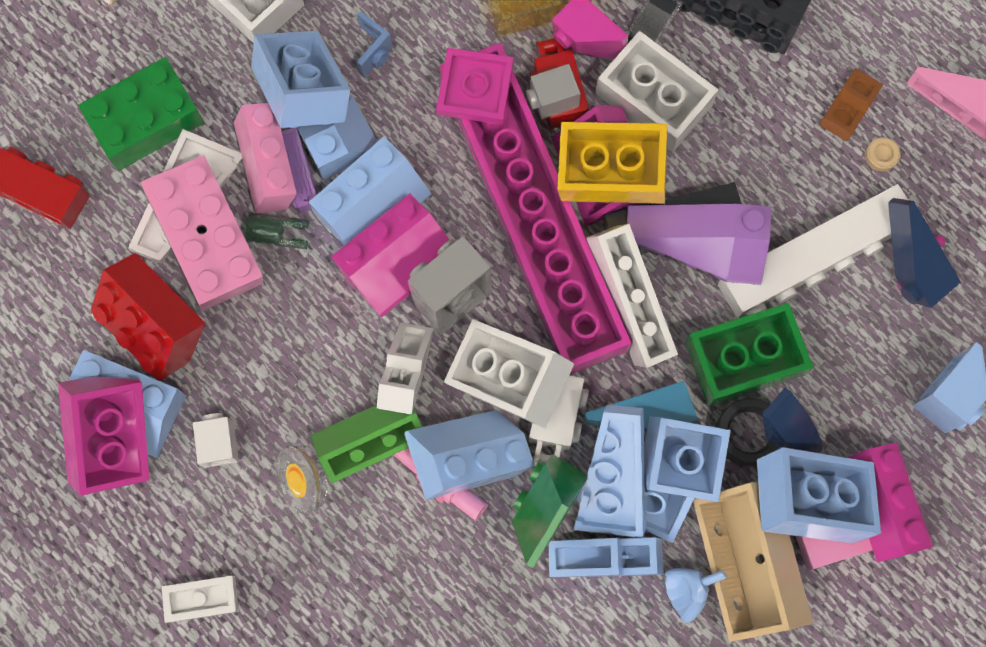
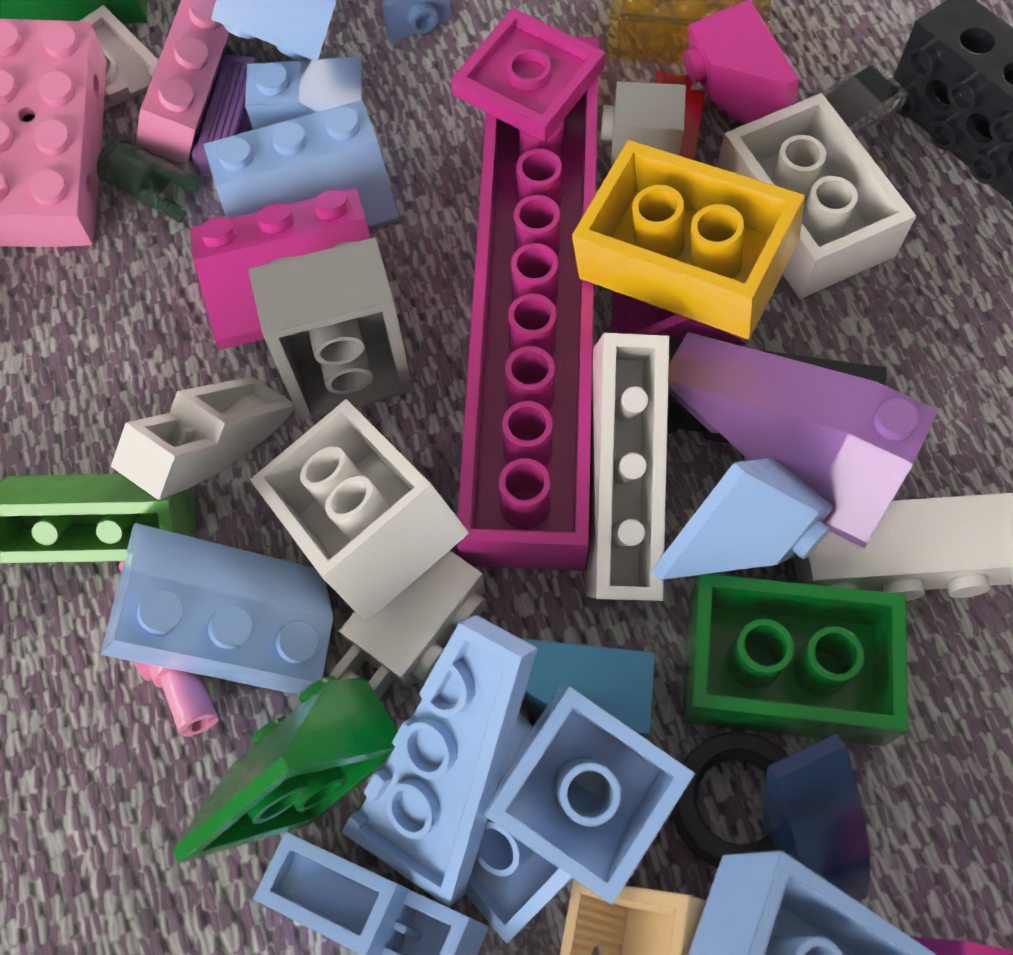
camera: 25 degrees right, 10 degrees down
(706, 300) = (748, 521): none -> light blue slope

